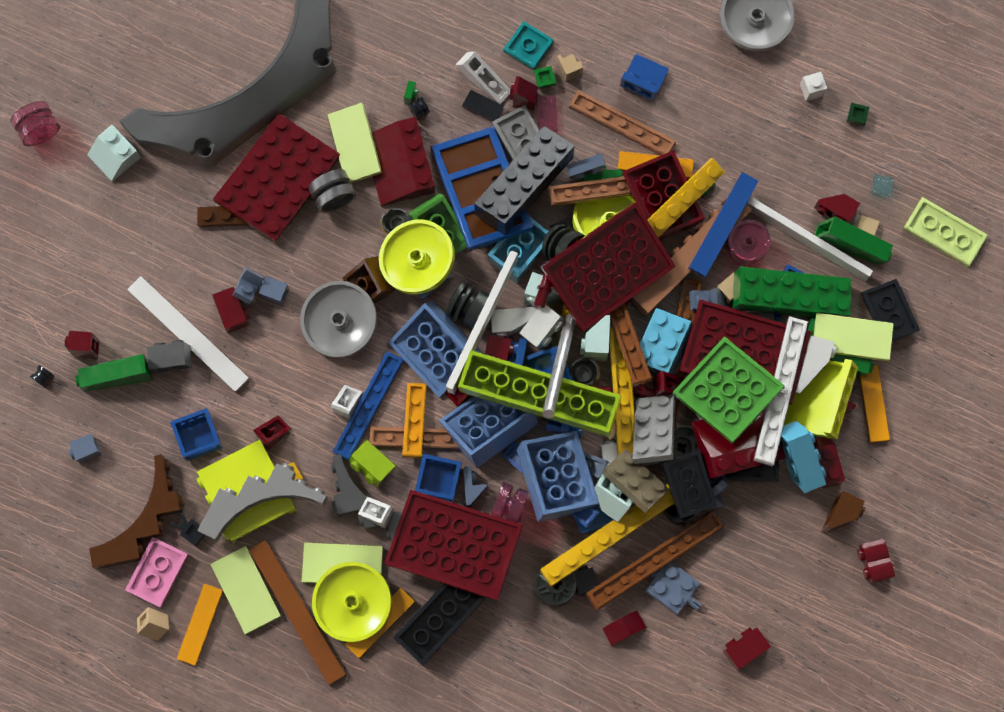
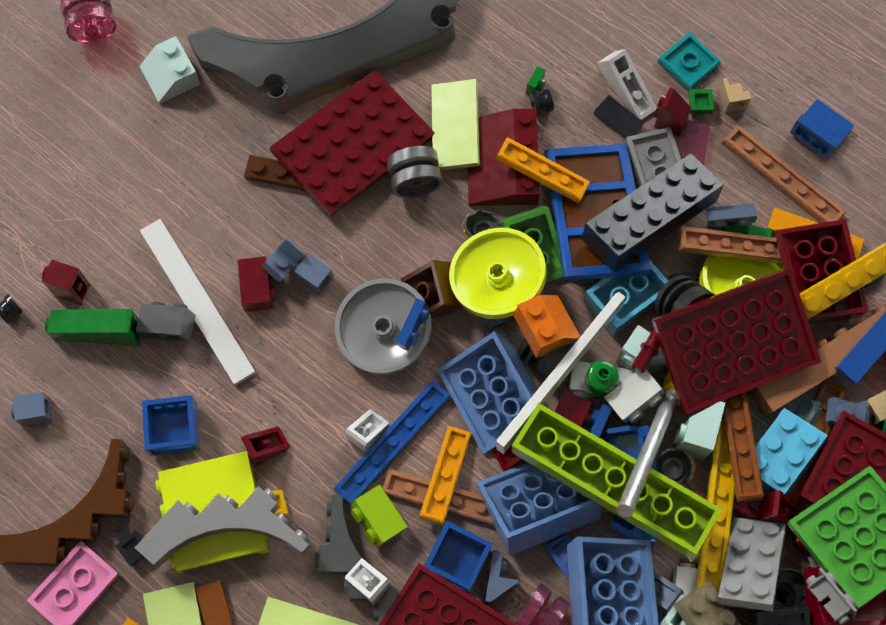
camera: 15 degrees right, 5 degrees down
(363, 305) = (409, 333): none -> blue plate
(432, 166) = (542, 170): none -> light orange tile
(462, 288) = (545, 324): none -> orange slope
(511, 324) = (598, 384): none -> green head
(674, 304) = (807, 409): none -> clear light blue tile
(719, 442) = (840, 603): none -> light grey hinge

